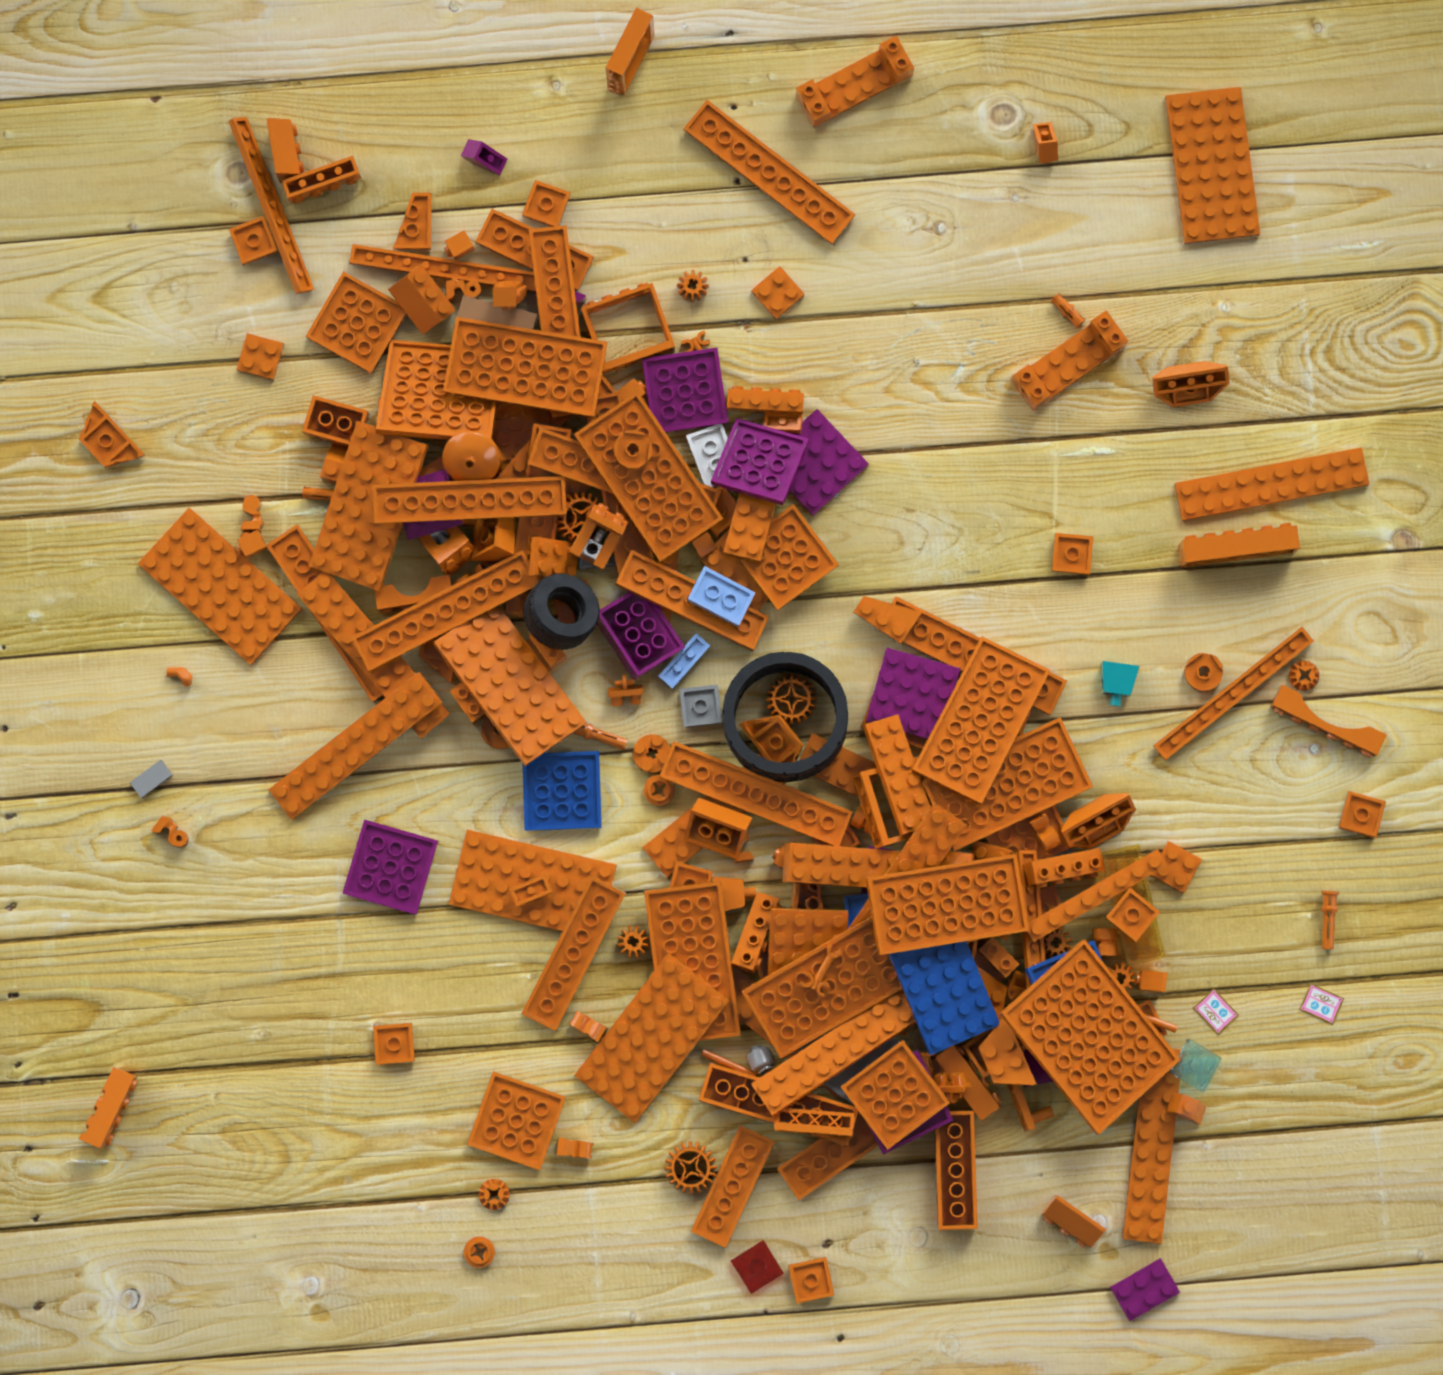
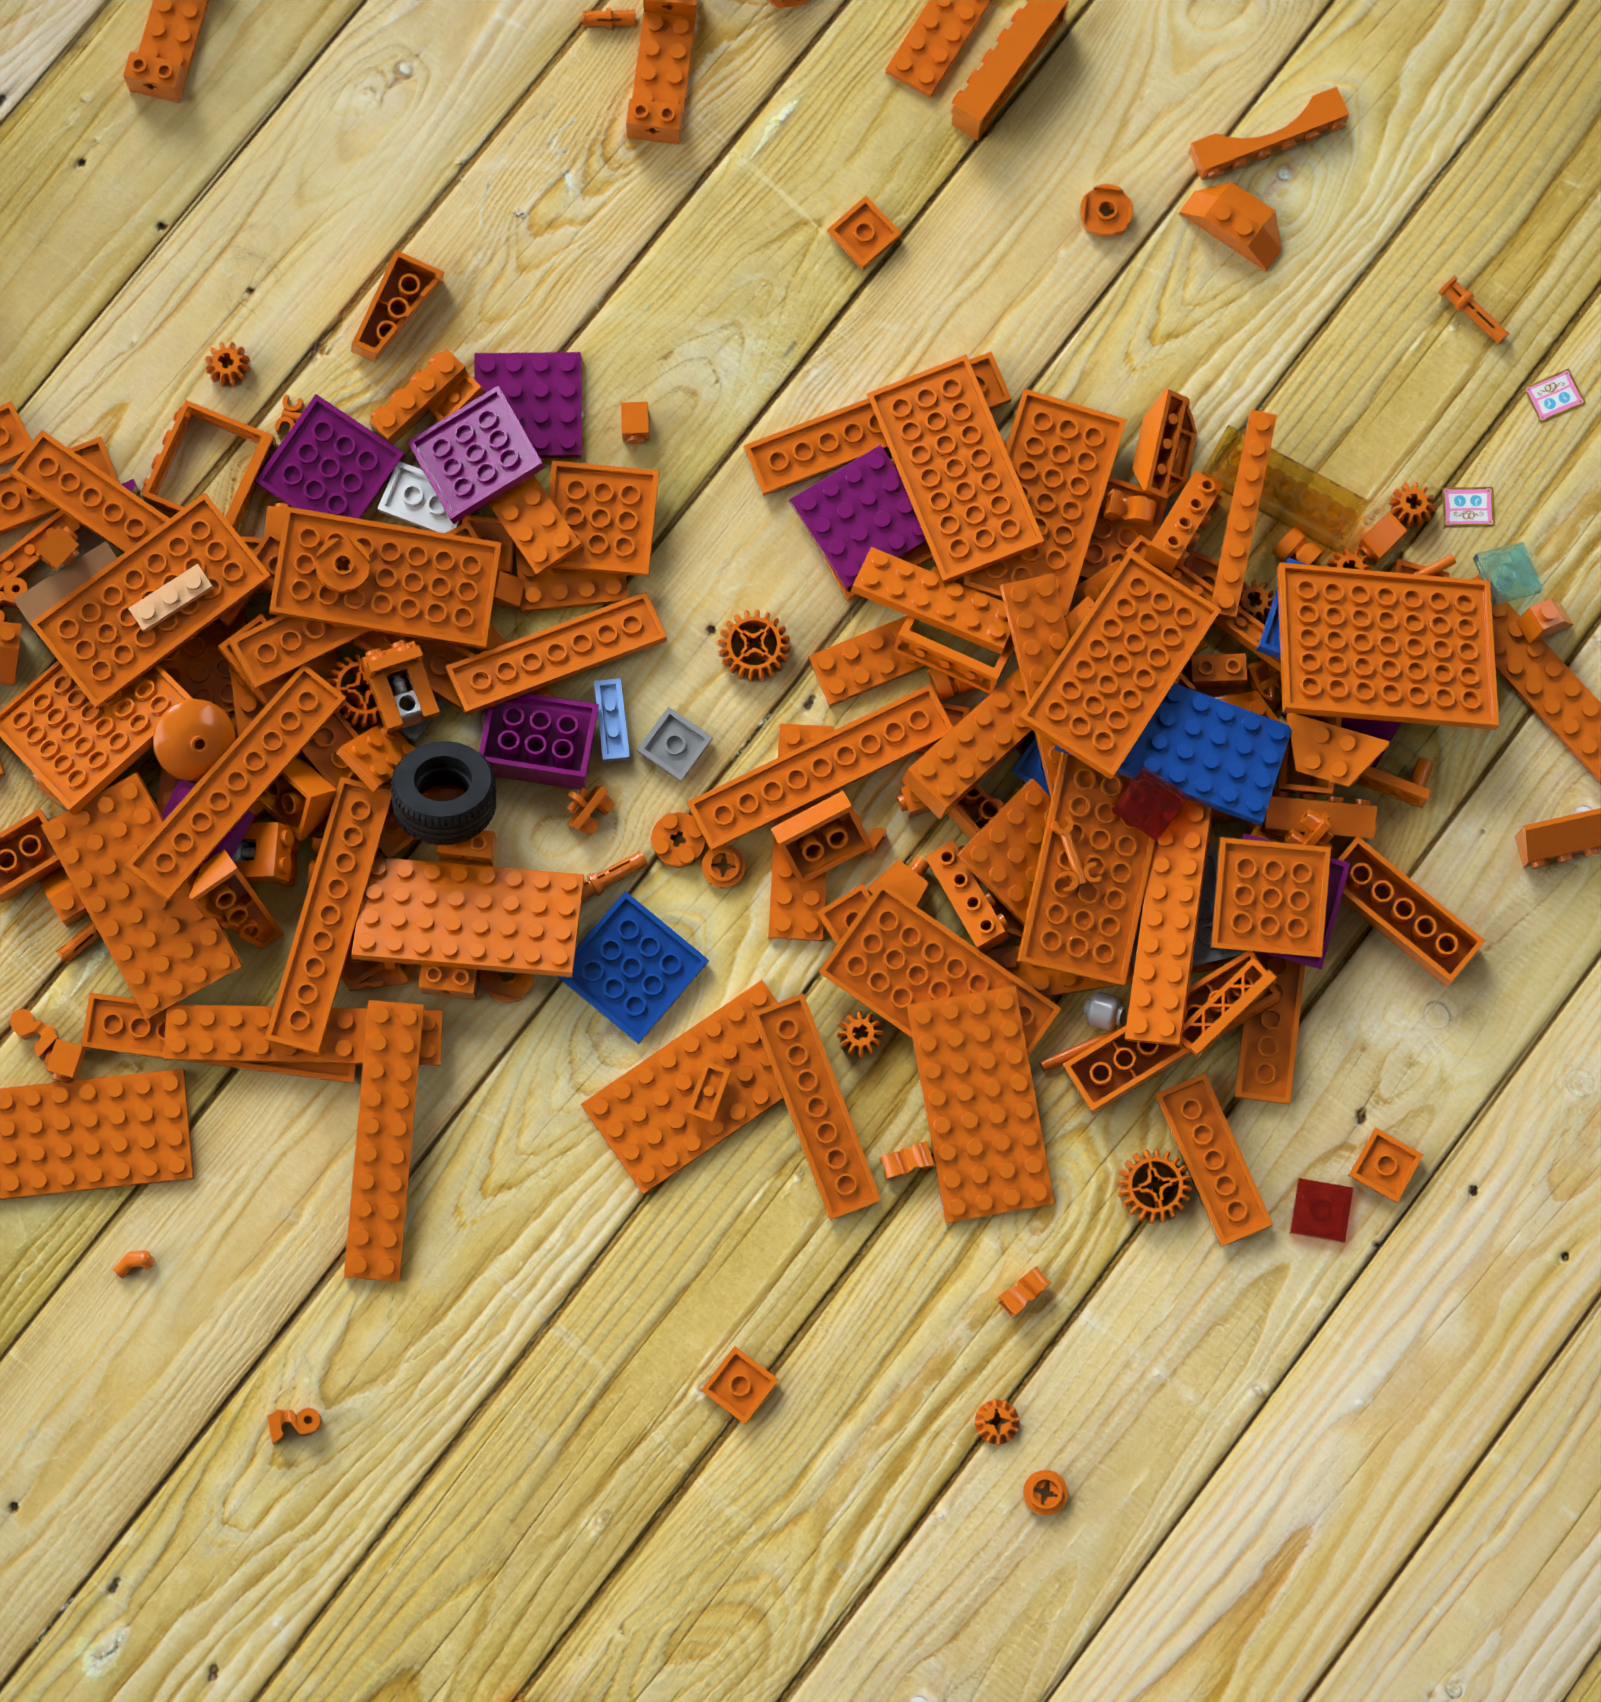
camera: 50 degrees left, 5 degrees down
(151, 779) = (216, 1394): light grey tile -> none
(390, 867) = (547, 1220): magenta plate -> none
(391, 599) = (263, 964): orange arch -> none
(408, 553) = (227, 896): none -> orange wedge
(516, 1120) = (940, 1327): orange plate -> none
(534, 377) = (171, 598): none -> light nougat plate
(721, 596) = (580, 618): light blue plate -> none
(769, 172) = (183, 184): orange plate -> none
(773, 738) = (783, 700): orange wing -> none
(777, 292) = (316, 287): orange plate -> none
(794, 663) = (758, 590): black tyre -> none
(807, 342) = (396, 301): none -> orange wedge
(856, 527) = (635, 422): none -> orange brick
(887, 617) = (759, 472): orange wing -> none
(887, 986) = (1150, 803): none -> clear red plate
(1118, 680) = (1037, 302): teal torso -> none
(1132, 914) = (1297, 493): orange plate -> none
(1180, 867) = (1292, 412): orange plate -> none
(1194, 982) = (1421, 502): none -> orange gear
(1233, 693) = (1155, 202): orange plate -> none
(1262, 747) = (1236, 221): none -> orange wedge
(1294, 675) = (1192, 125): orange gear -> none
(1362, 814) = (1395, 184): orange plate -> none

